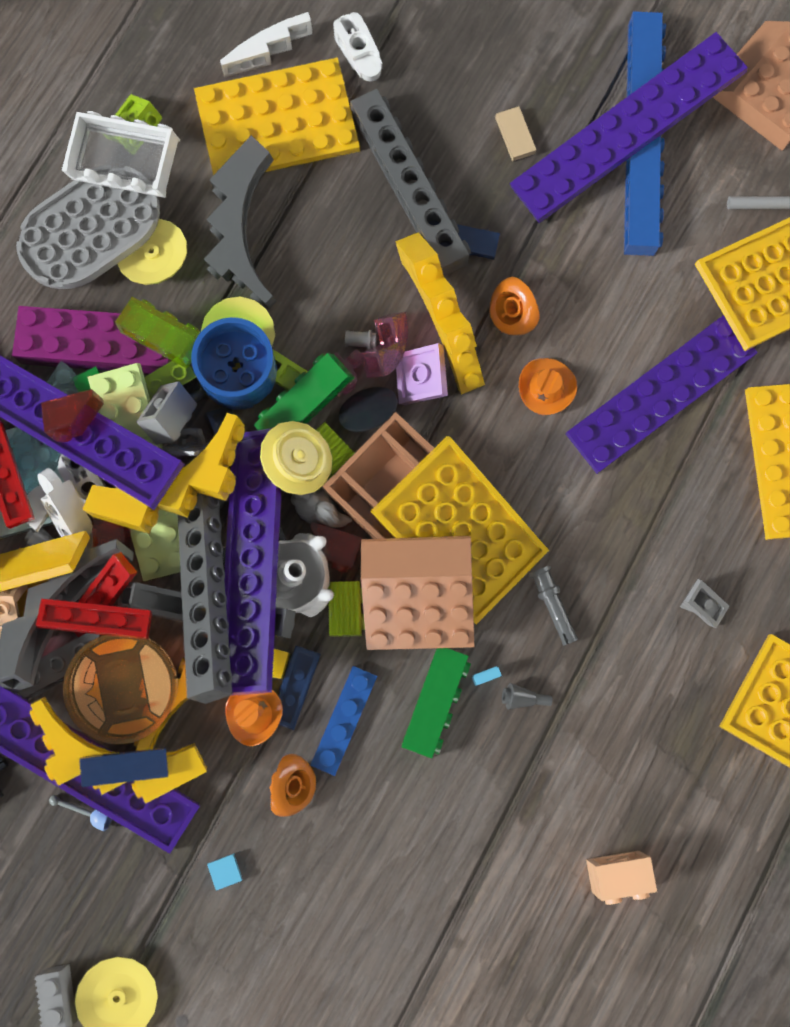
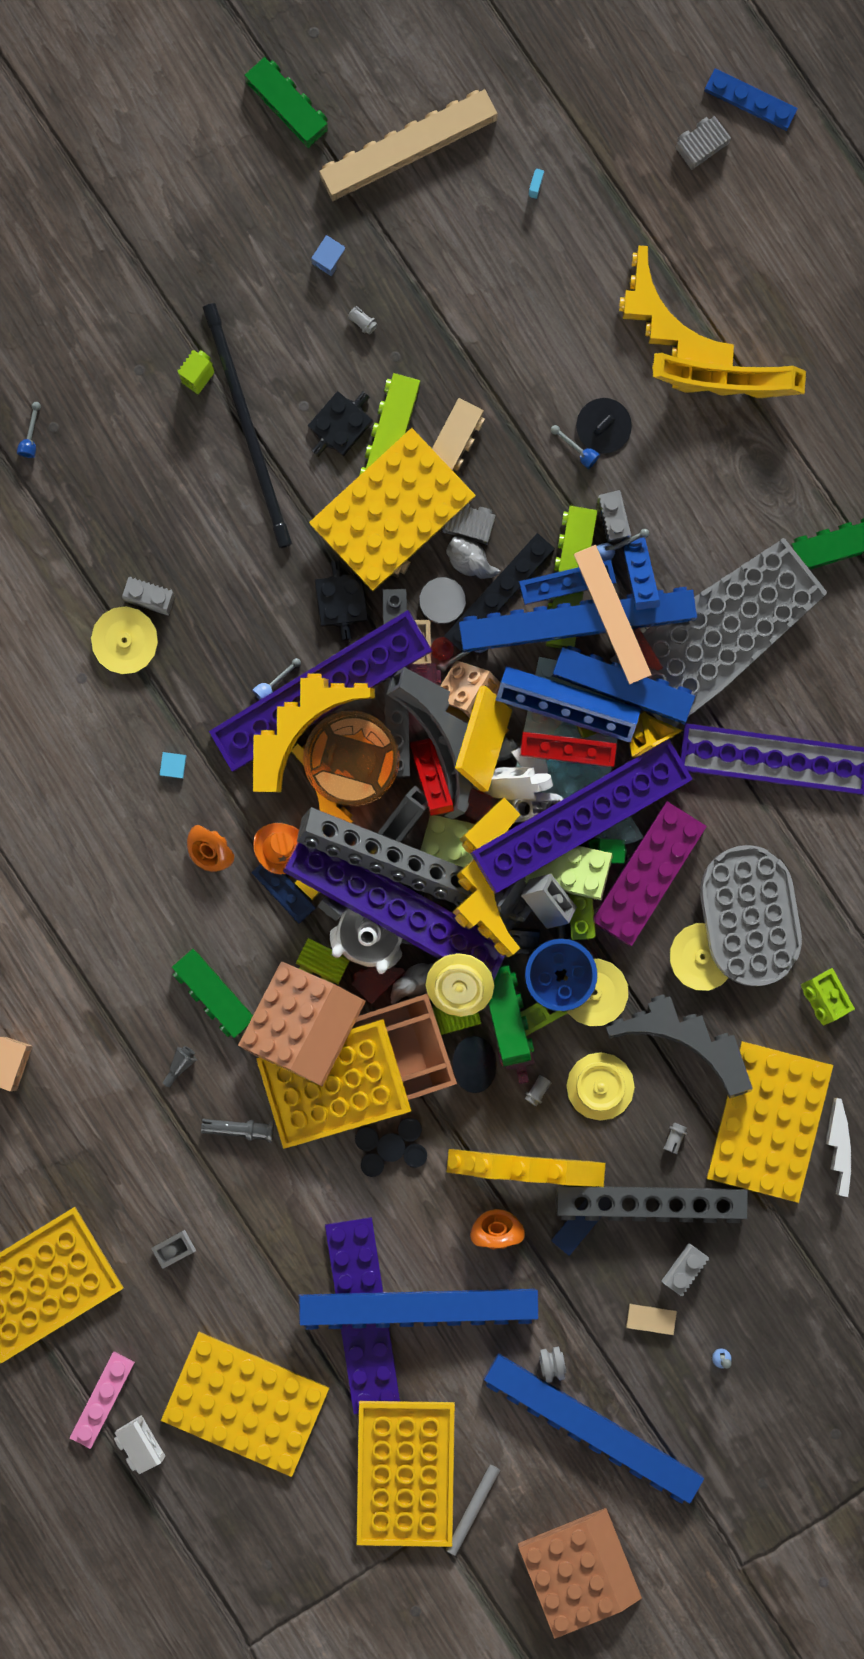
camera: 120 degrees right, 5 degrees up
(70, 414) = (581, 824): clear red slope -> none
(94, 619) = (411, 765): red plate -> none
(120, 153) = (795, 973): window -> none
(123, 767) = (288, 733): dark blue tile -> none
(158, 331) = (619, 929): clear neon green brick -> none
(326, 286) = (600, 1086): none -> light yellow piece
(337, 193) = (675, 1138): none -> light grey pin
(343, 721) = (237, 915): blue plate -> none
(364, 61) = (779, 1225): white piece -> none
(393, 337) = (511, 1103): clear pink brick -> none
(422, 375) = (480, 1123): lavender plate -> none
(454, 122) = (685, 1269): none -> light grey brick
(486, 675) = (212, 1042): medium azure tile -> none
(491, 448) = (391, 1147): none -> black piece
(517, 51) = (724, 1359): none -> light blue hinge
(547, 386) = (418, 1223): orange hat -> none
(608, 195) = (552, 1364): none -> light grey wheel
(628, 127) = (600, 1412): dark purple plate -> none
(629, 343) = (422, 1306): none -> blue brick

